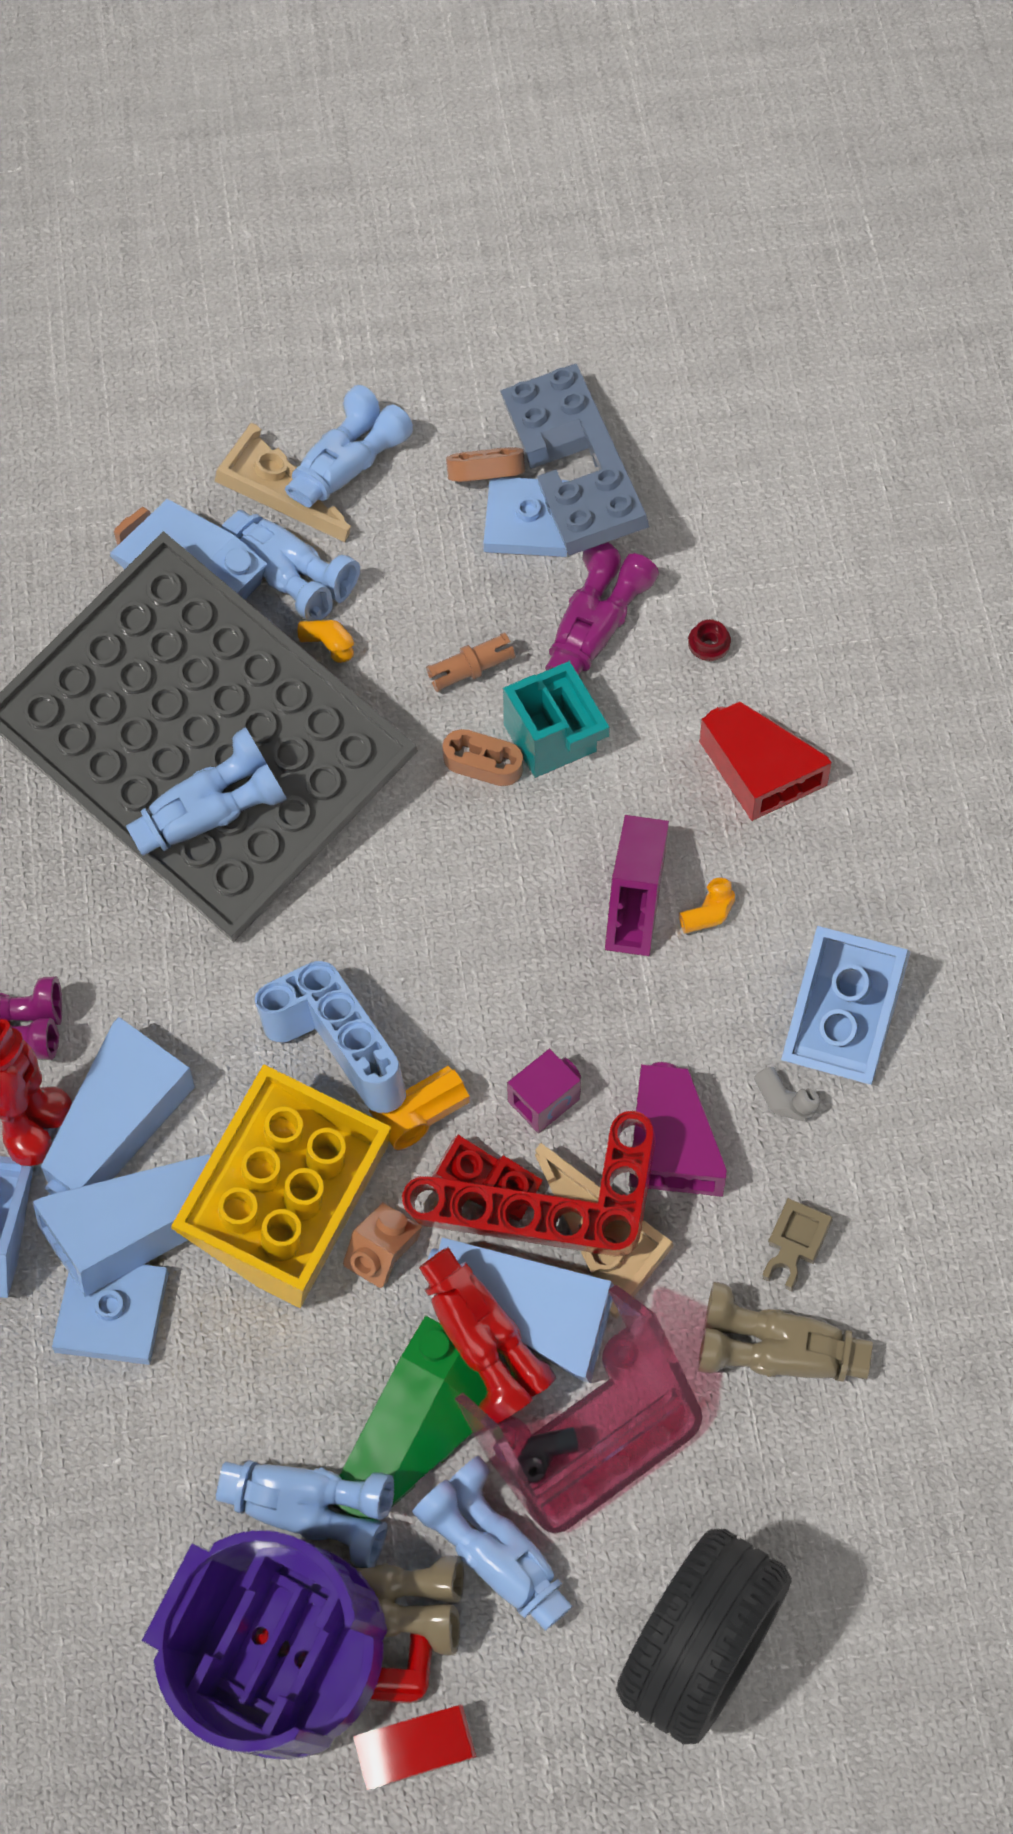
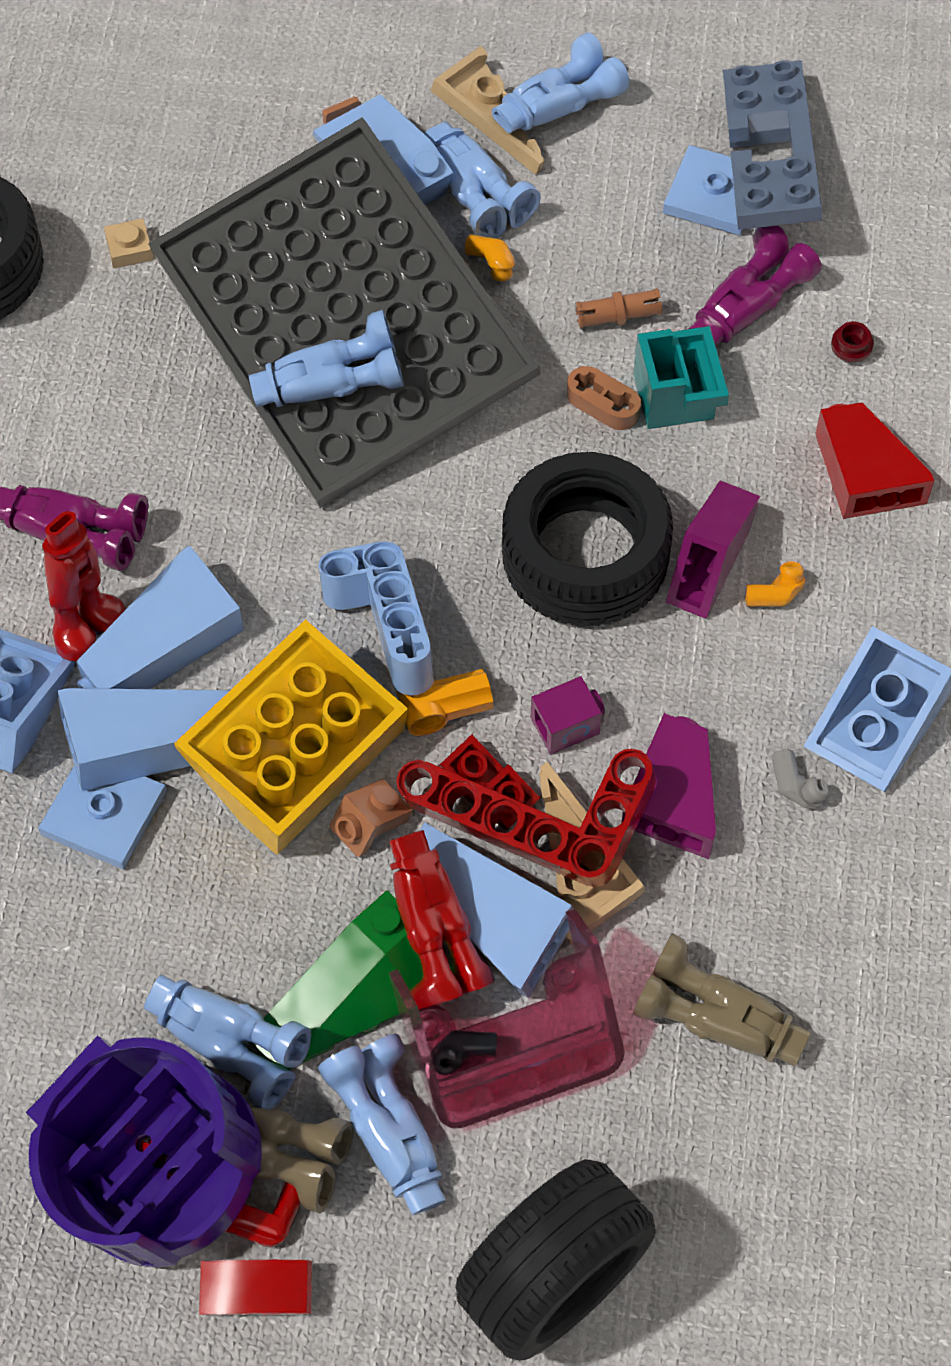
camera: 15 degrees right, 0 degrees up
(485, 464) = (687, 132): nougat beam -> none
(504, 850) = (590, 484): none -> black tyre
(797, 1236) = (768, 914): dark tan plate -> none

